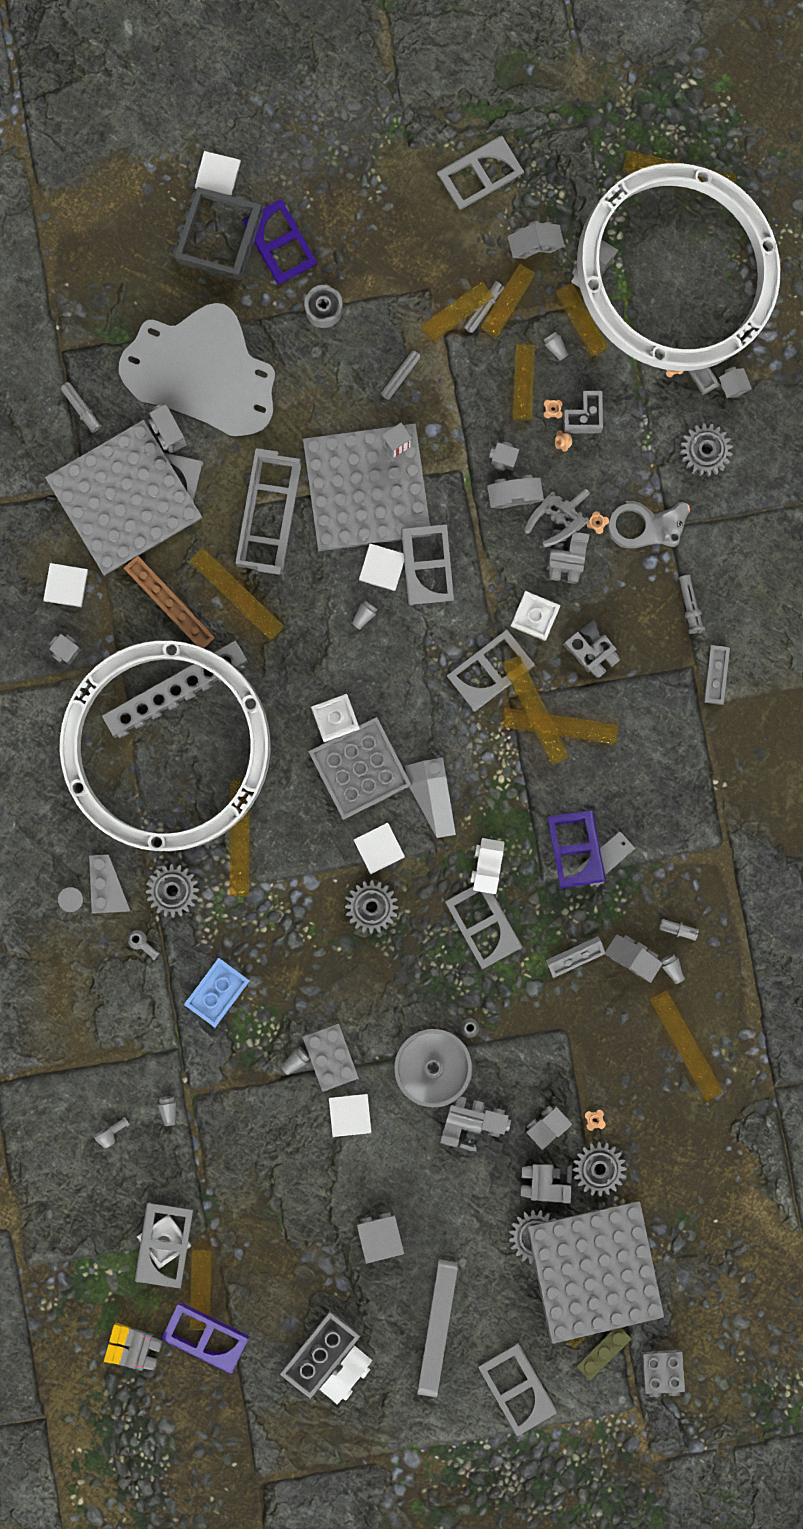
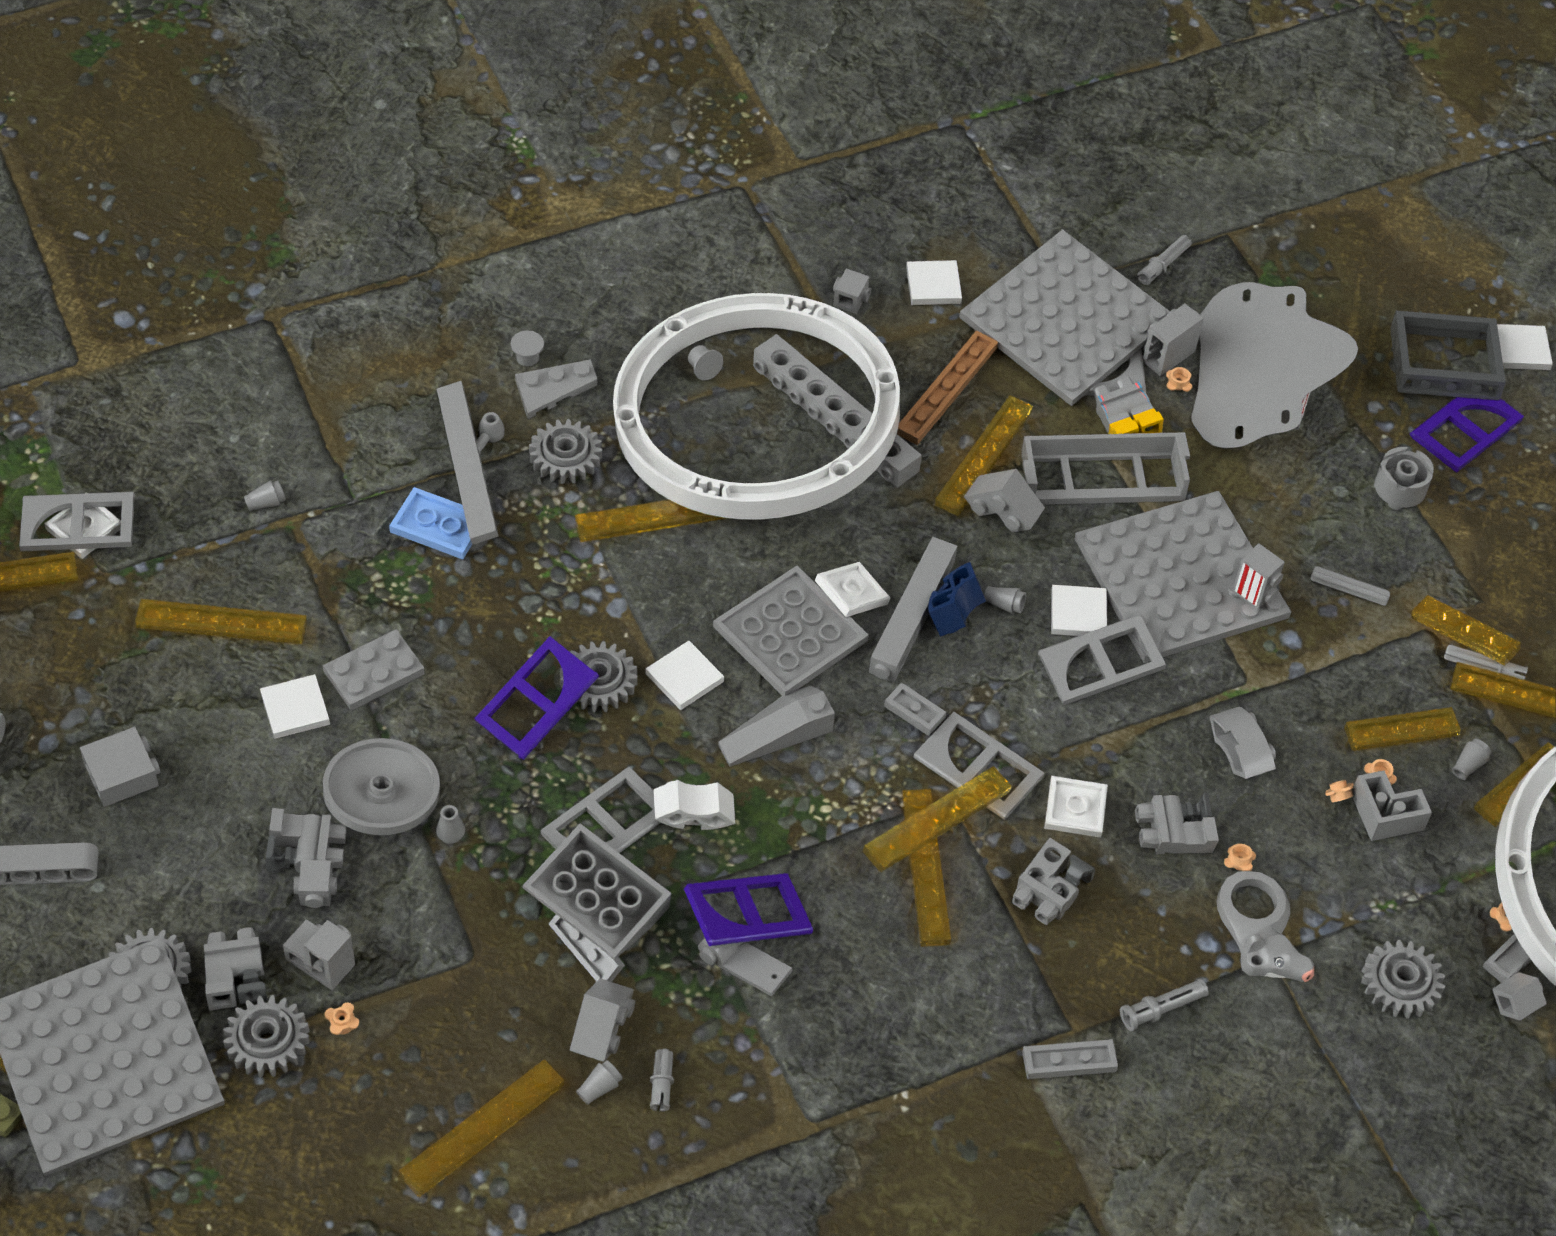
camera: 75 degrees right, 30 degrees down
(106, 1136) = (217, 437): light grey bar -> none
(110, 773) = (705, 362): none -> light grey piece
(170, 963) = (467, 463): none -> light grey tile
(196, 429) = (1179, 379): none -> light nougat plate
(217, 485) = (1127, 409): none -> light grey hips
(271, 1155) = (221, 621): none -> clear yellow plate
(285, 593) = (1008, 497): none -> light grey brick
(295, 1061) = (360, 626): light grey cone -> none
(361, 680) = (912, 610): none -> light grey brick
(362, 650) = (955, 599): none -> dark blue brick
(380, 923) = (577, 680): none -> dark purple window
(440, 701) = (915, 709): none -> light grey plate
(504, 456) = (1288, 723): light grey brick -> none
(547, 943) = (598, 892): none -> light grey slope
(565, 510) = (1241, 809): light grey bar -> none

